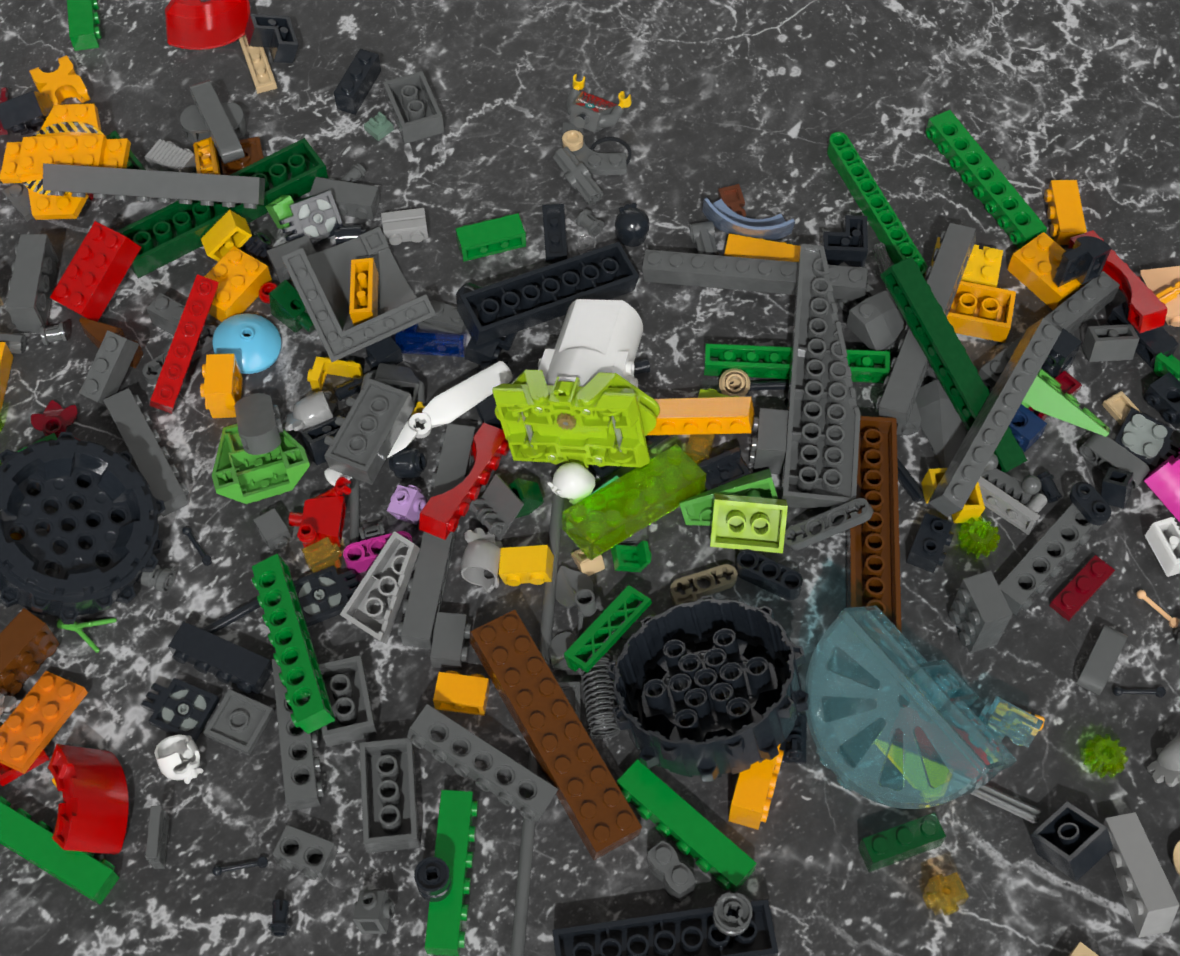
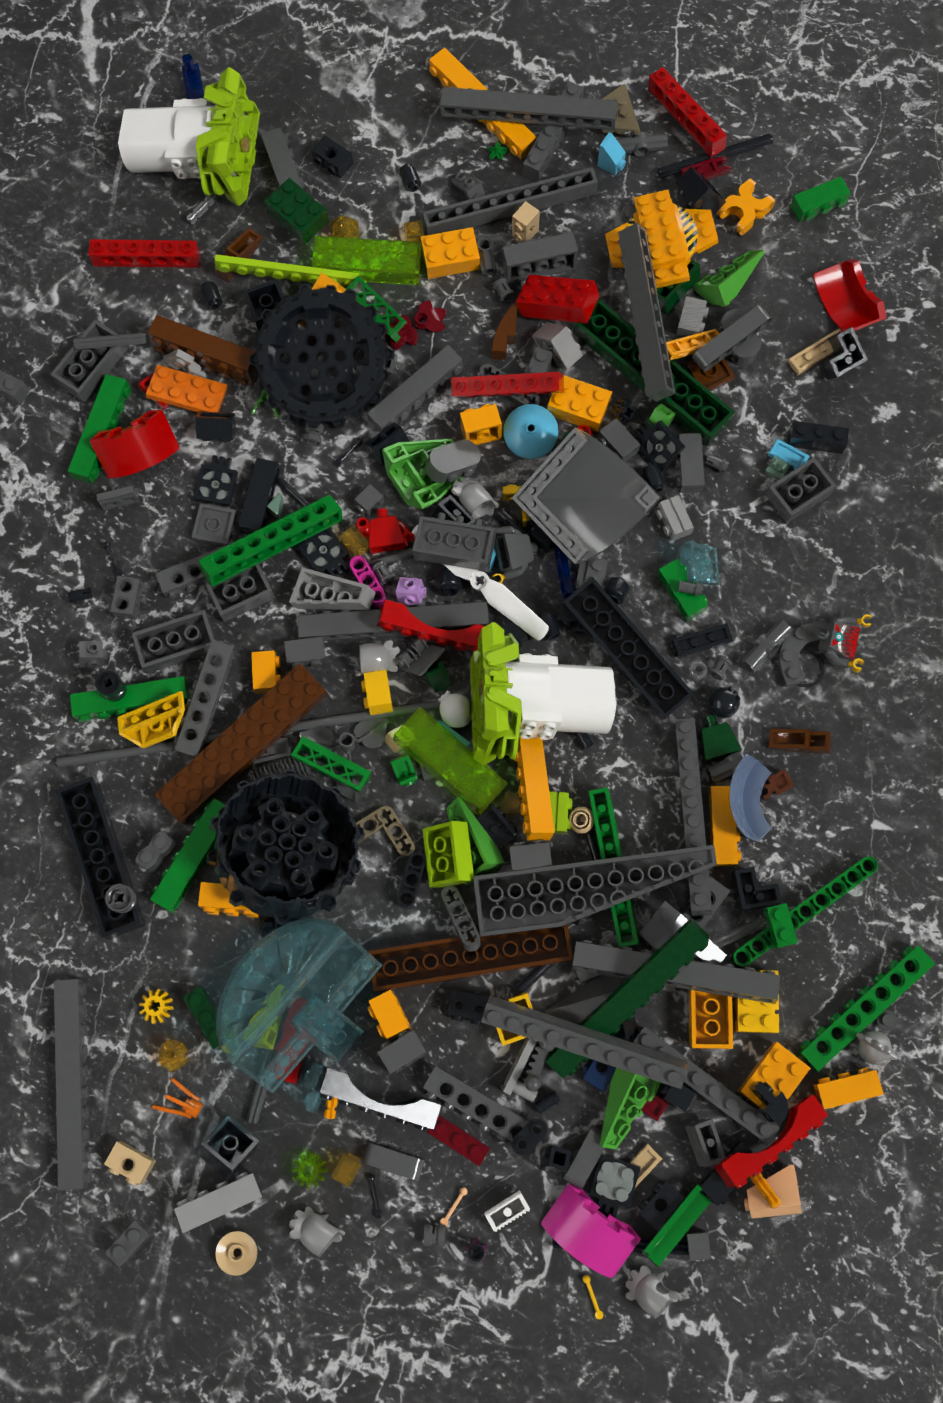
camera: 80 degrees right, 15 degrees up
(102, 691) = (215, 426): none -> black piece
(109, 367) = (475, 339): dark grey brick -> none
(139, 117) = (729, 280): none -> bright green wedge
(145, 285) = (560, 342): none -> light grey brick
(178, 758) = (176, 492): white helmet -> none
(202, 493) = (387, 437): none -> black brick
(226, 233) = (621, 383): yellow brick -> none
(243, 638) = (276, 505): none -> sand green slope
(363, 290) = (590, 504): light orange brick -> none
(366, 111) = (788, 454): none -> medium azure tile
(460, 209) = (700, 562): none -> clear light blue plate
(496, 835) = (153, 721): none -> yellow wedge
(498, 216) = (691, 588): none -> dark grey pin
(573, 140) = (802, 632): tan tile -> none
(671, 237) = (717, 740): none -> dark green torso
(690, 170) = (800, 740): none -> reddish brown slope
(870, 916) = (149, 1003): none -> yellow gear
(892, 220) = (780, 926): none -> green brick
(935, 617) = (389, 1015): none -> light orange brick
(979, 537) = (489, 1051): clear neon green gear -> none
(1011, 887) = (190, 1107): none -> orange plant
(1017, 678) = (416, 1110): none -> arch
(1028, 176) = (875, 1048): none -> light grey piece
(1107, 712) = (347, 1169): none -> clear yellow brick

